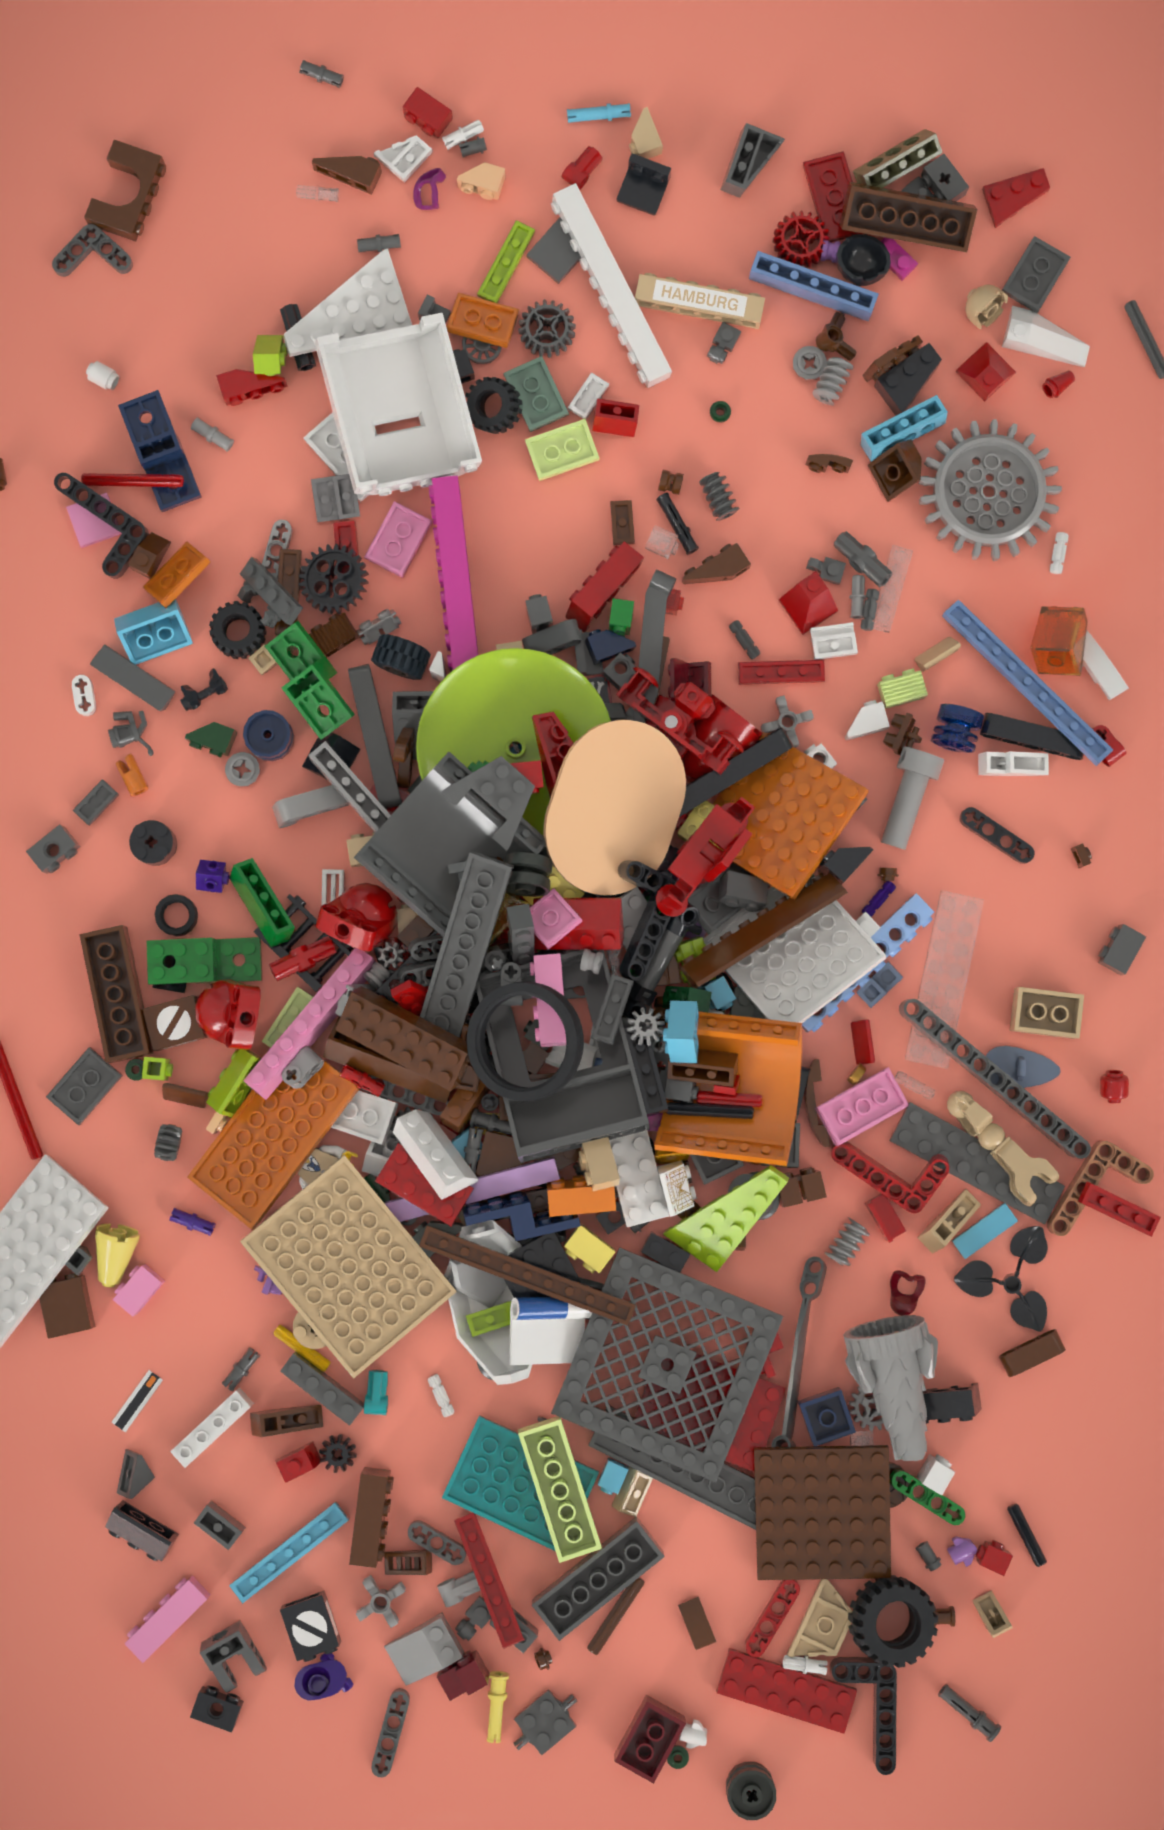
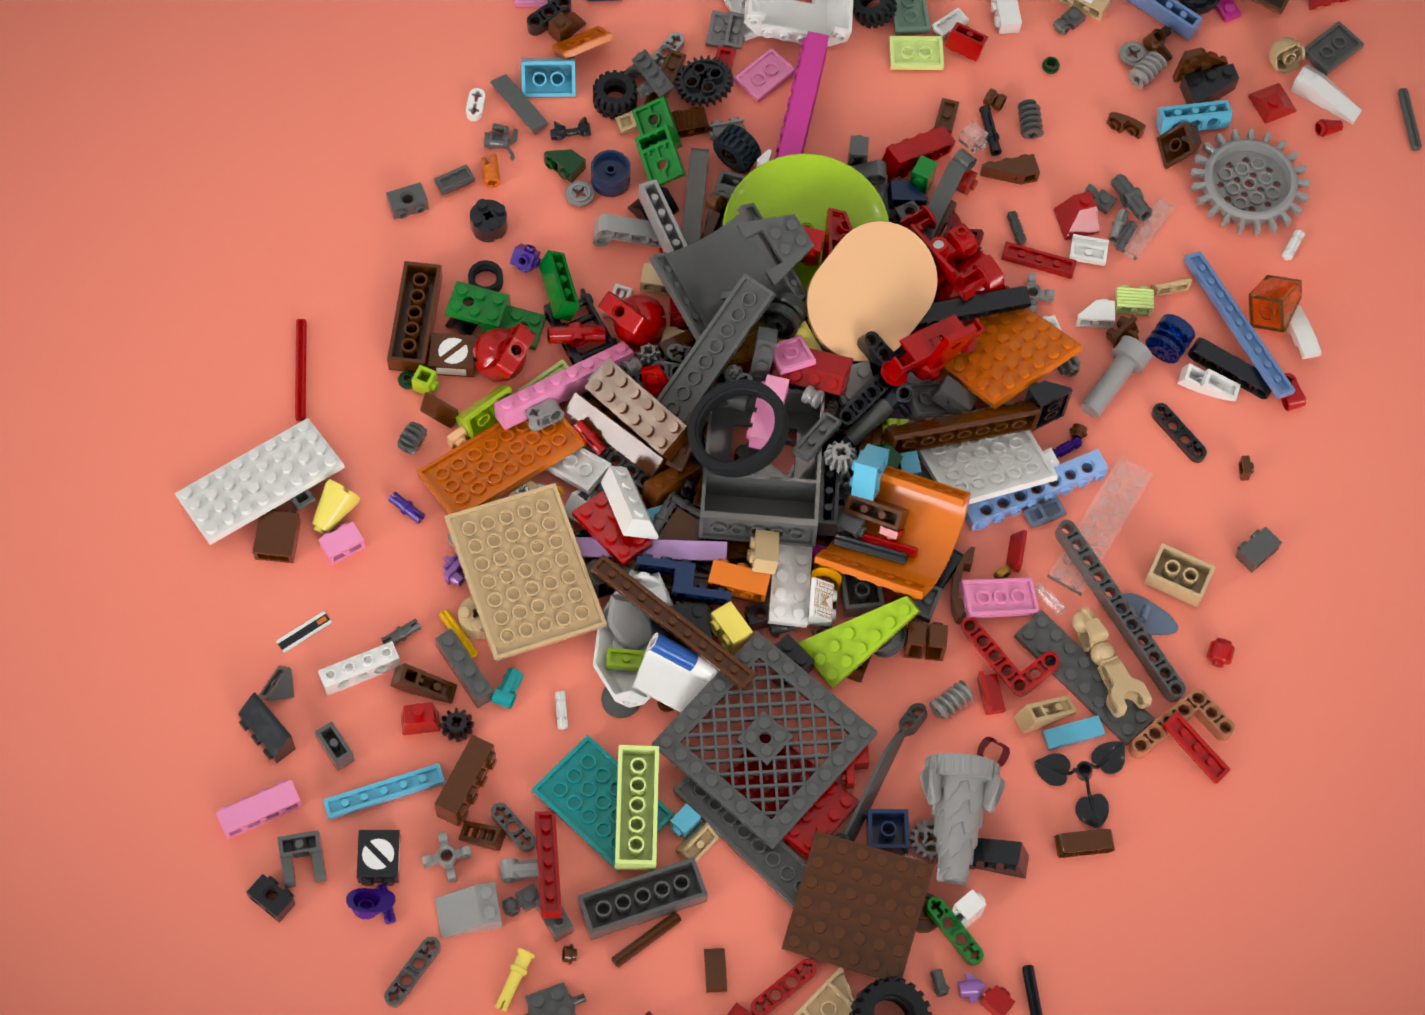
camera: 15 degrees right, 20 degrees down
(84, 1086) = (360, 379): dark grey tile -> none
(464, 1675) = (495, 941): dark red brick -> none

